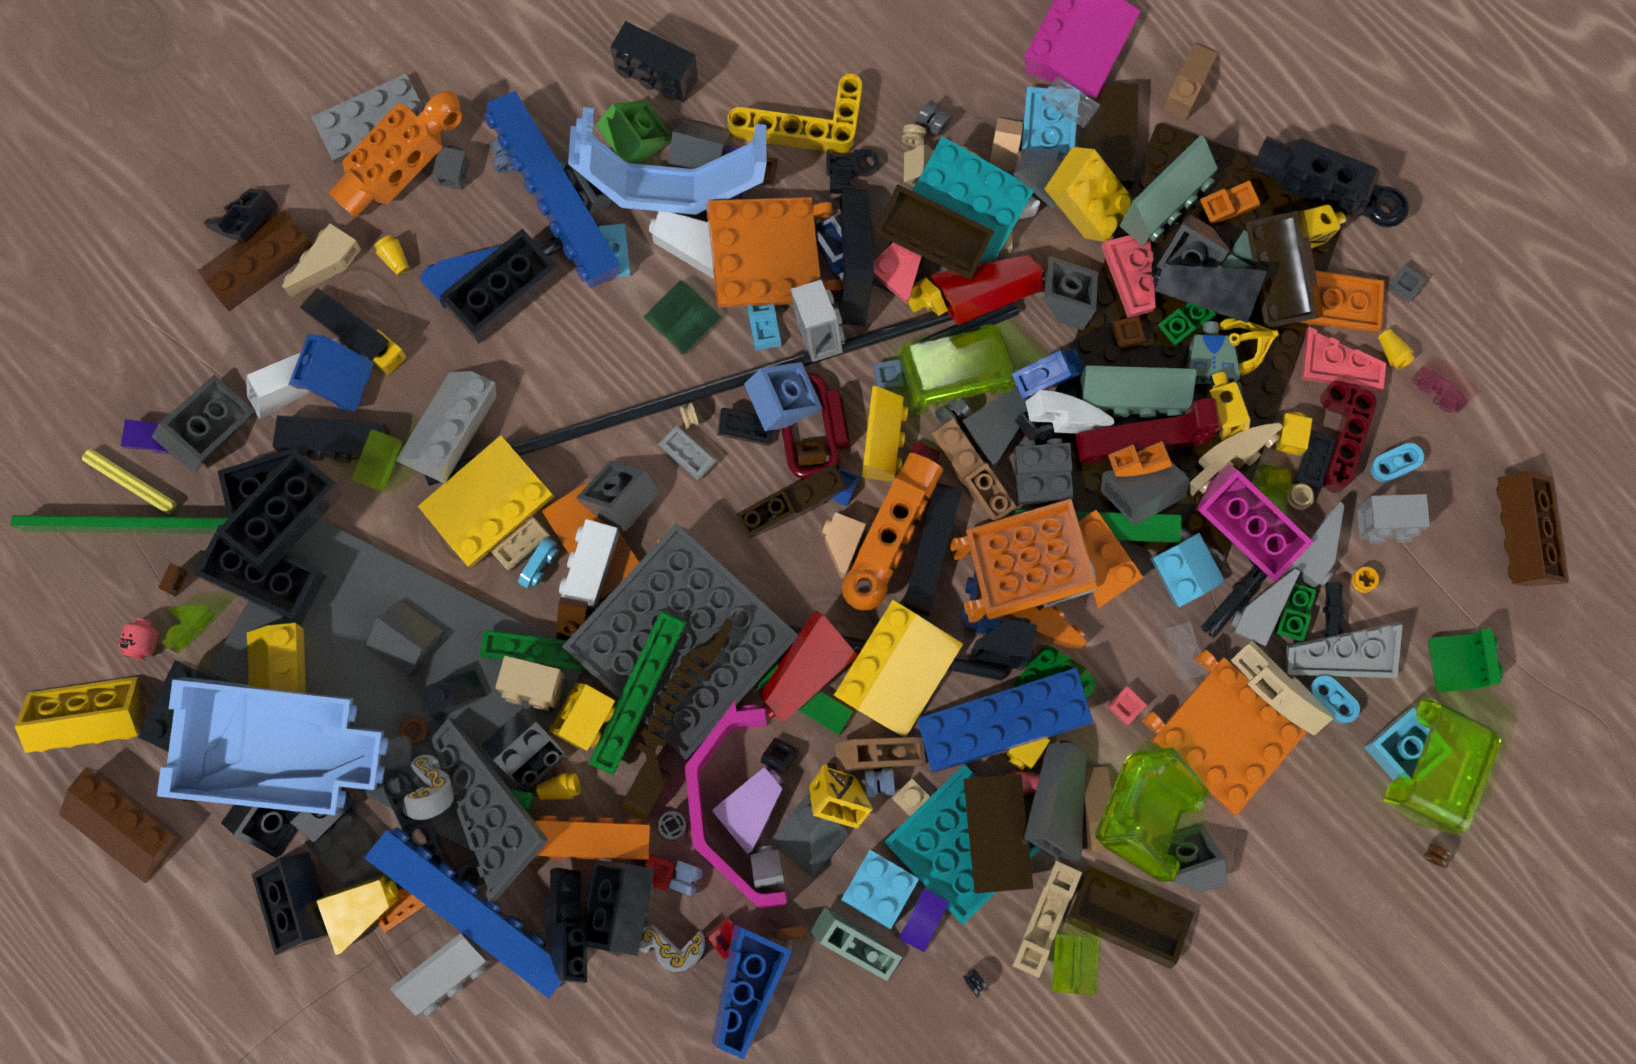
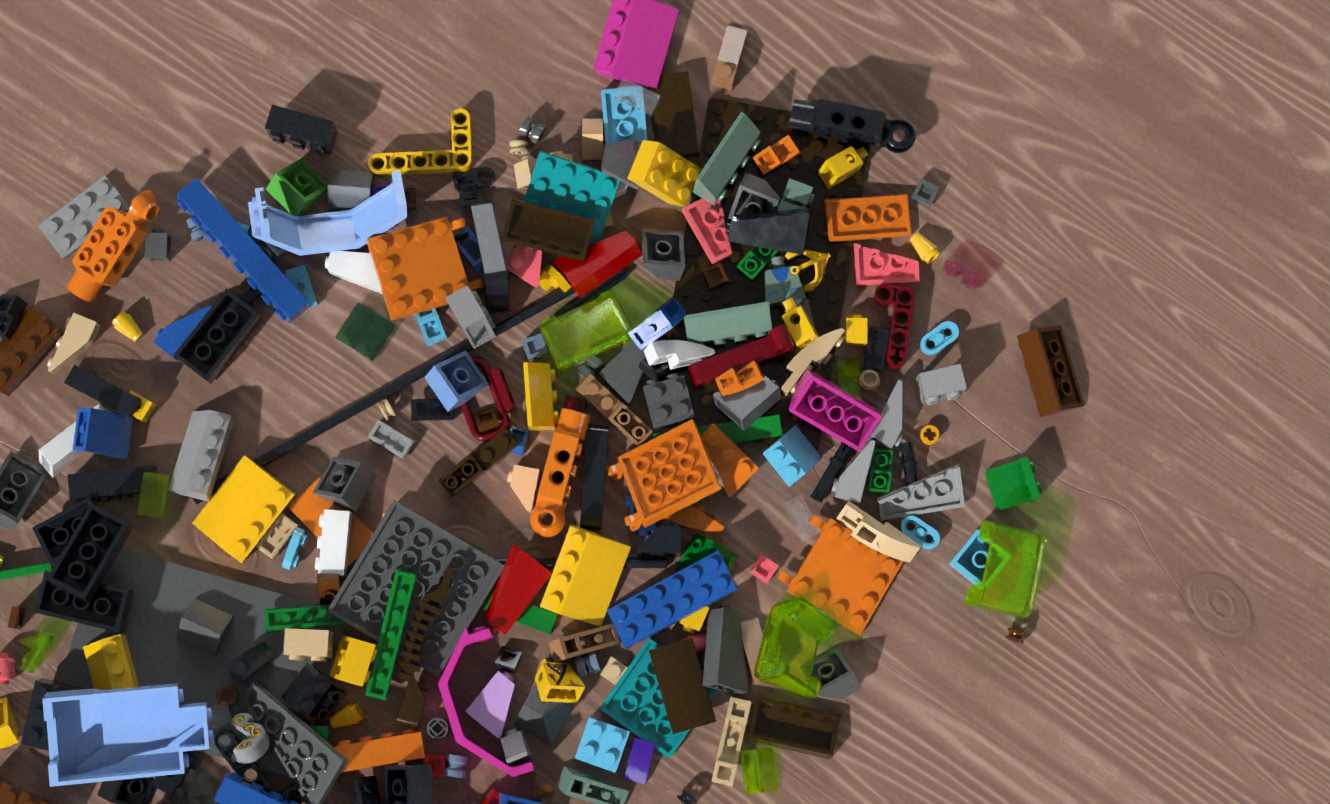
camera: 10 degrees left, 5 degrees up
(1290, 284) = (831, 215): dark brown slope -> none

